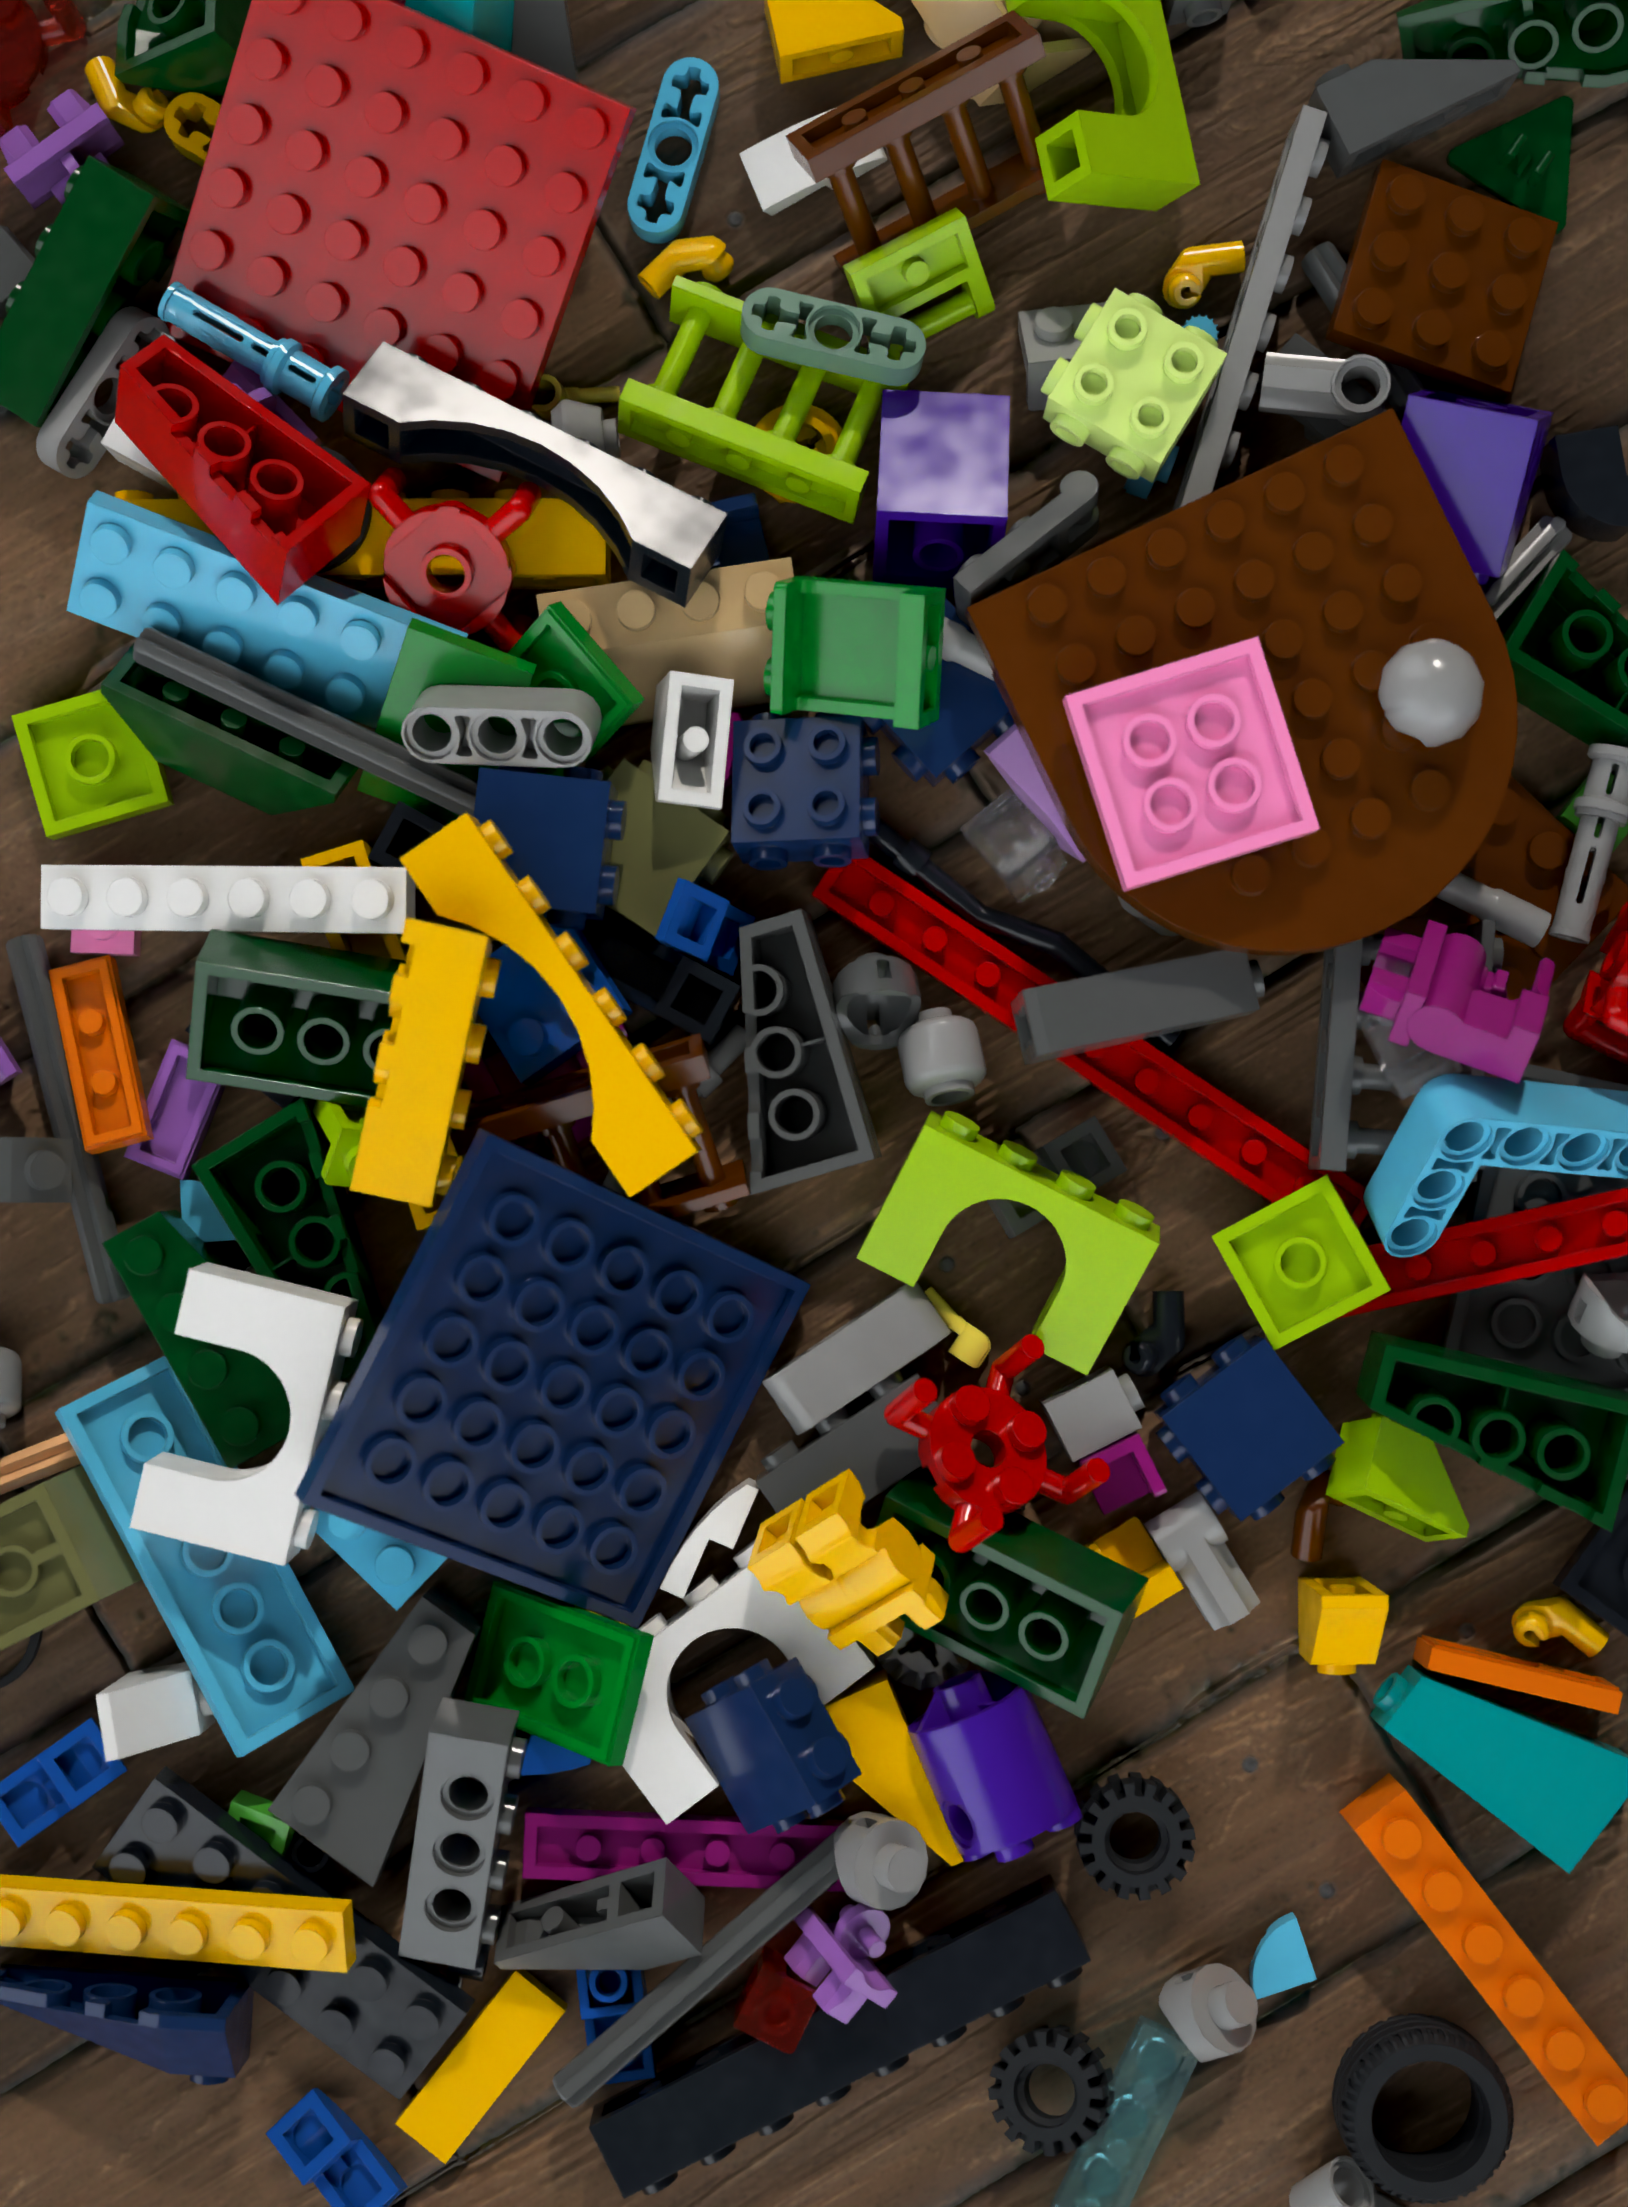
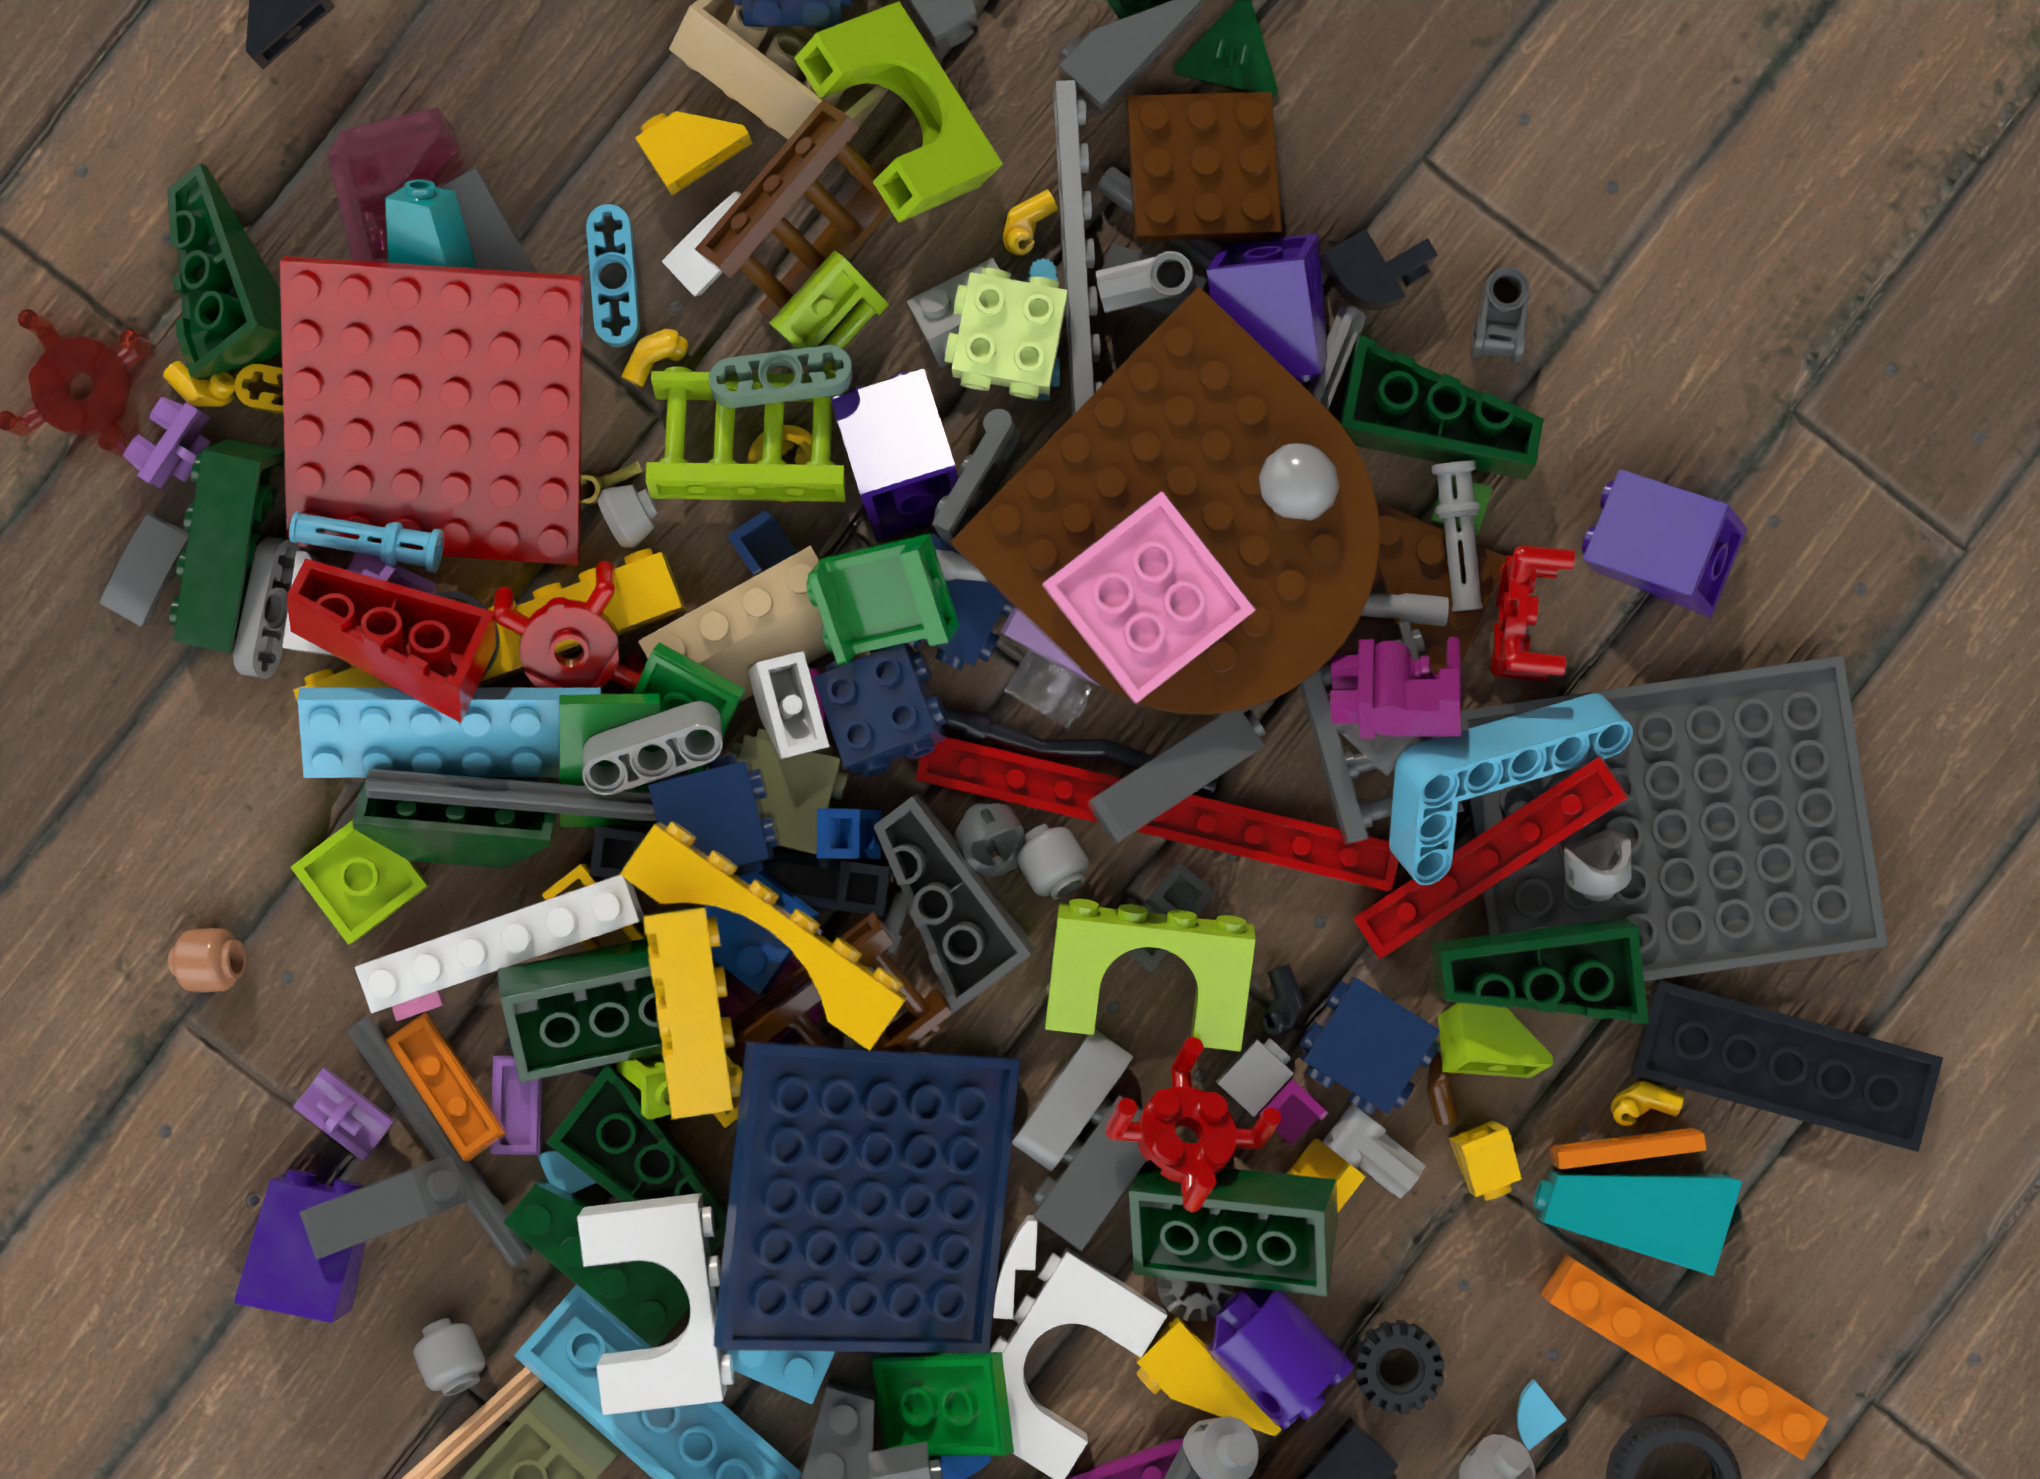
camera: 25 degrees left, 0 degrees up
(426, 415) = (509, 543): arch -> none
(773, 1746) = (1115, 1399): dark blue brick -> none
(847, 1574) = (1118, 1256): yellow hips -> none
(971, 1343) = (1151, 1058): light yellow hand -> none
(1301, 1262) = (1362, 913): lime plate -> none

